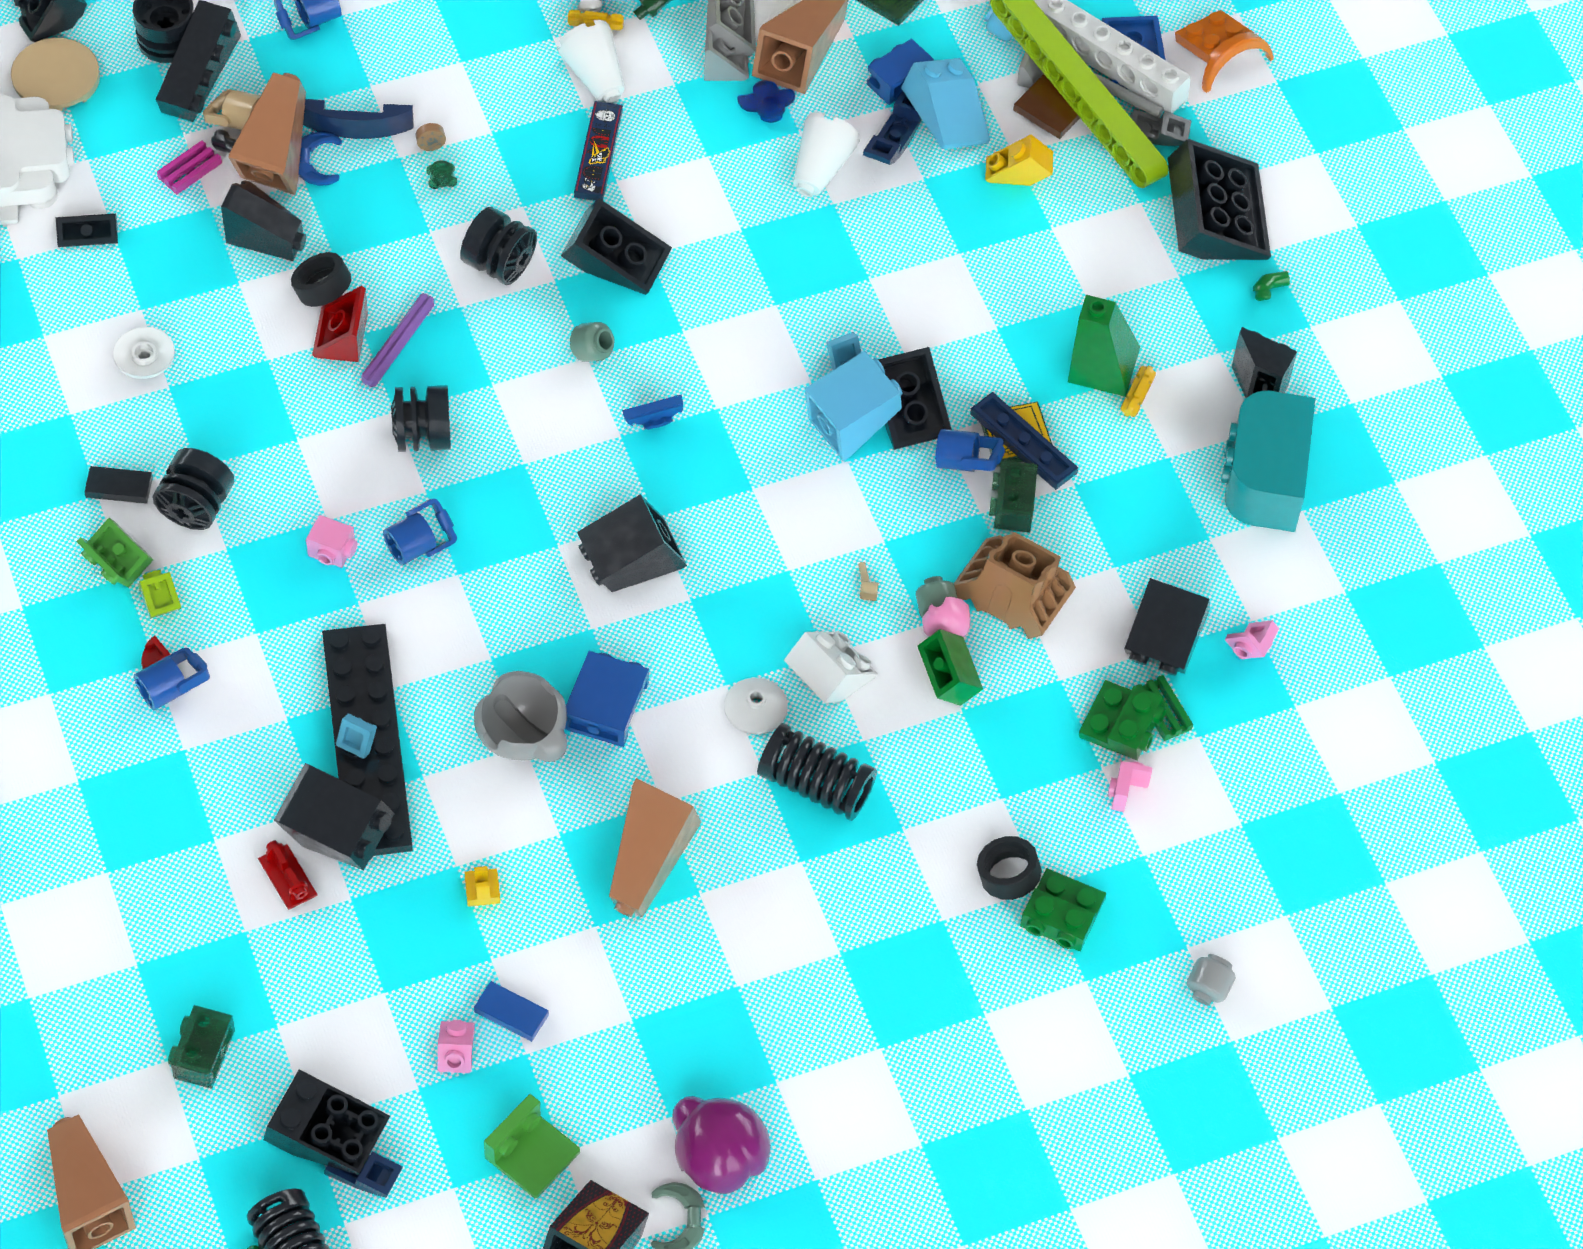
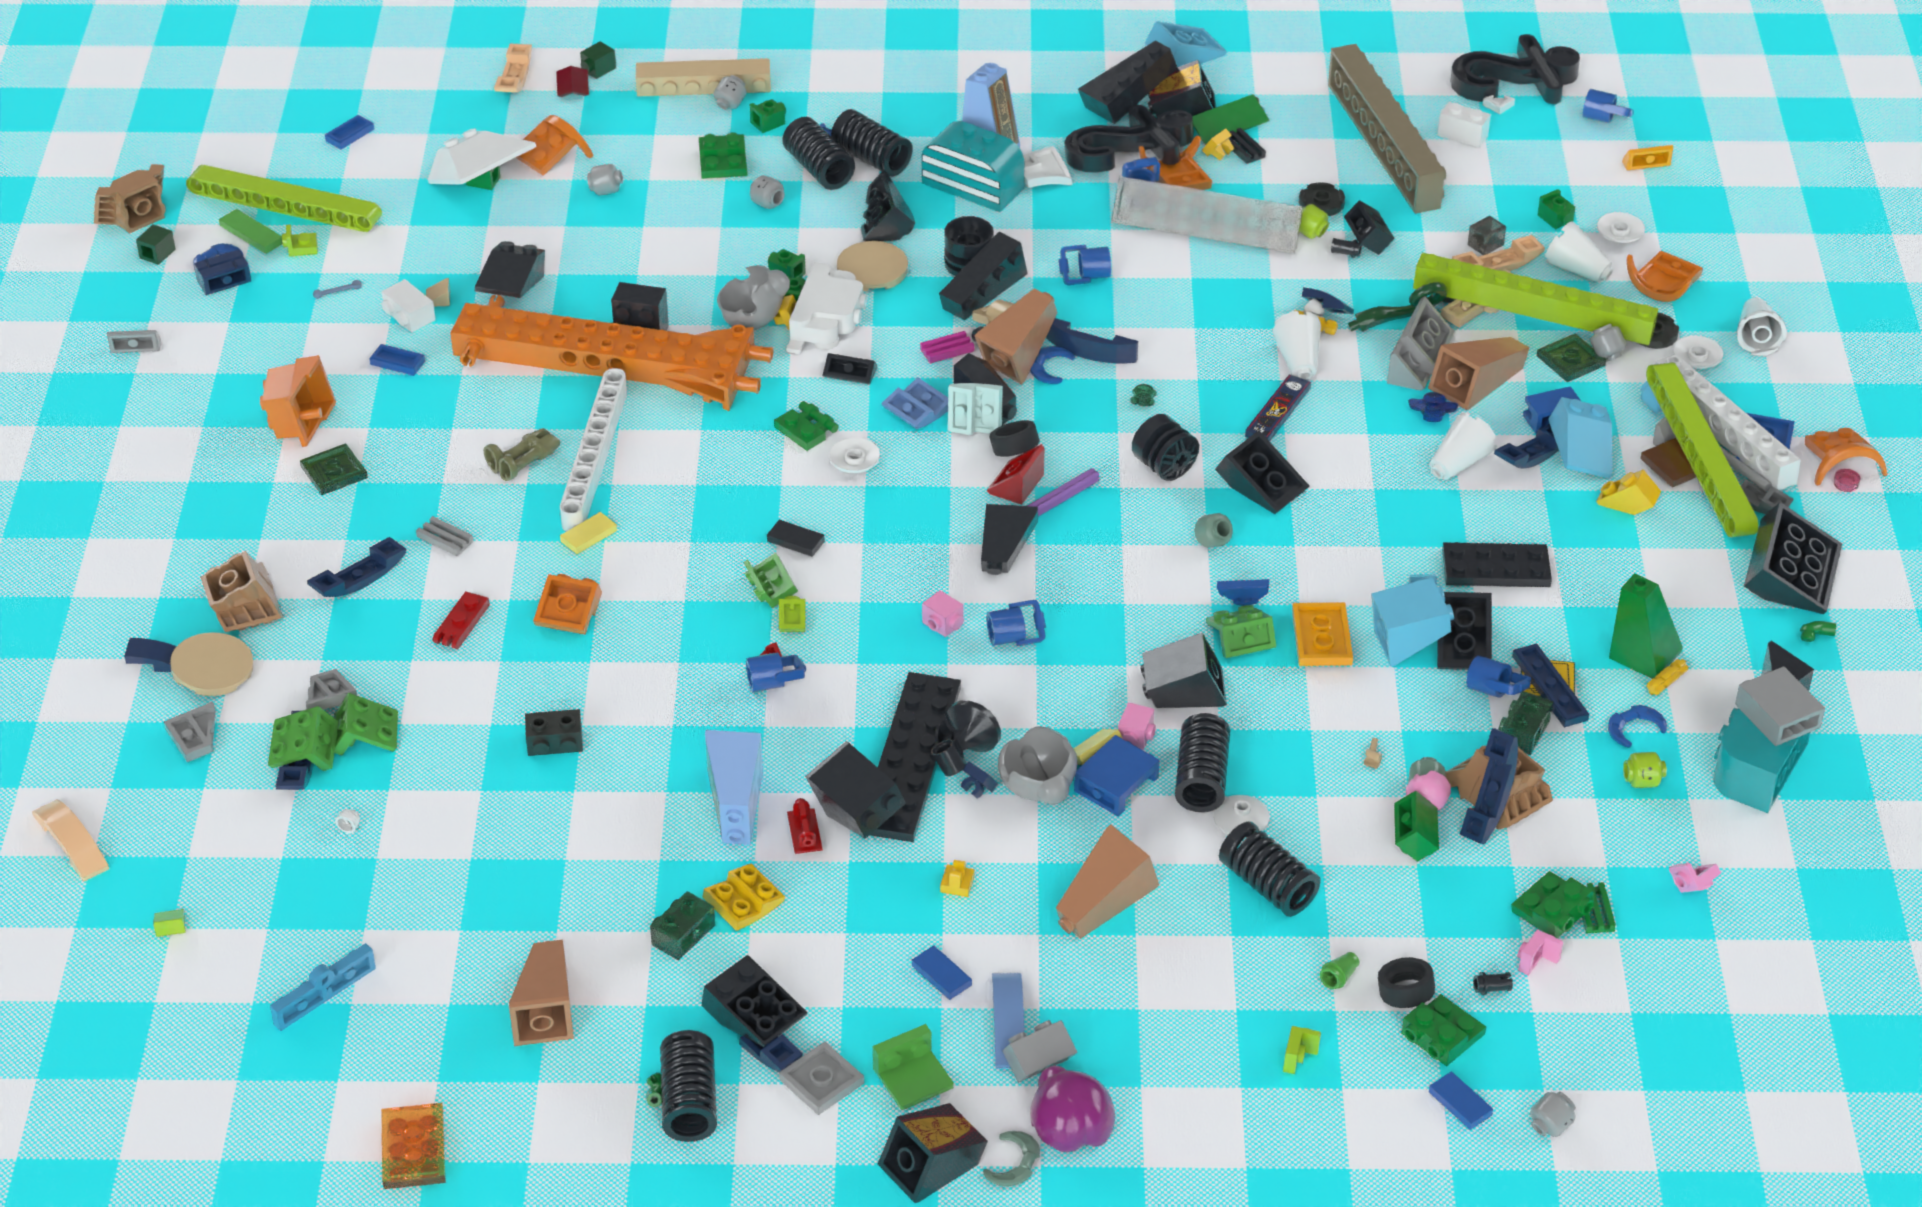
camera: 25 degrees right, 15 degrees down
(65, 332) = (801, 430): none -> green plate
(184, 838) = (735, 781): none -> light blue slope
(187, 257) = (917, 404): none -> medium blue slope
(193, 489) = (849, 548): black wheel -> none
(253, 984) = (743, 896): none -> yellow slope
(261, 252) = (974, 408): none -> light aqua slope
(356, 735) = (900, 743): medium azure tile -> none
(362, 419) = (1005, 535): none -> black slope
(418, 697) = (964, 727): none -> black piece
(422, 418) = (1046, 545): black wheel -> none
(430, 137) = (1145, 368): medium nougat tile -> none
(433, 1188) = (821, 1078): none -> light grey tile
(455, 1046) = (883, 982): bright pink bracket -> none
(457, 749) = (978, 778): none -> dark blue tile
(567, 665) = (1093, 744): none -> light yellow tile
(604, 627) = (1137, 725): none -> bright pink brick
(607, 1046) = (1008, 1012): none -> medium blue slope
(658, 1080) = (1039, 1050): none -> light grey brick
(672, 463) = (1243, 630): none -> bright green bracket
(695, 656) = (1202, 762): none -> black piece
(758, 444) = (1322, 634): none -> light orange plate
(830, 665) = (1314, 799): white slope -> none
(909, 295) = (1496, 564): none -> black plate
(923, 983) = (1300, 1042): none -> lime bracket
(932, 873) = (1339, 970): none -> bright green cone
(1020, 602) = (1495, 787): none -> dark blue slope
(1087, 839) = (1492, 982): none -> black pin
(1111, 990) = (1460, 1100): none -> blue tile
(1126, 444) = (1618, 721): none -> blue piece
(1157, 521) = (1644, 770): none -> lime head
(1167, 627) = (1621, 845): black slope -> none
(1236, 78) = (1846, 480): none -> clear pink tile
(1282, 413) = (1779, 706): none -> light grey brick

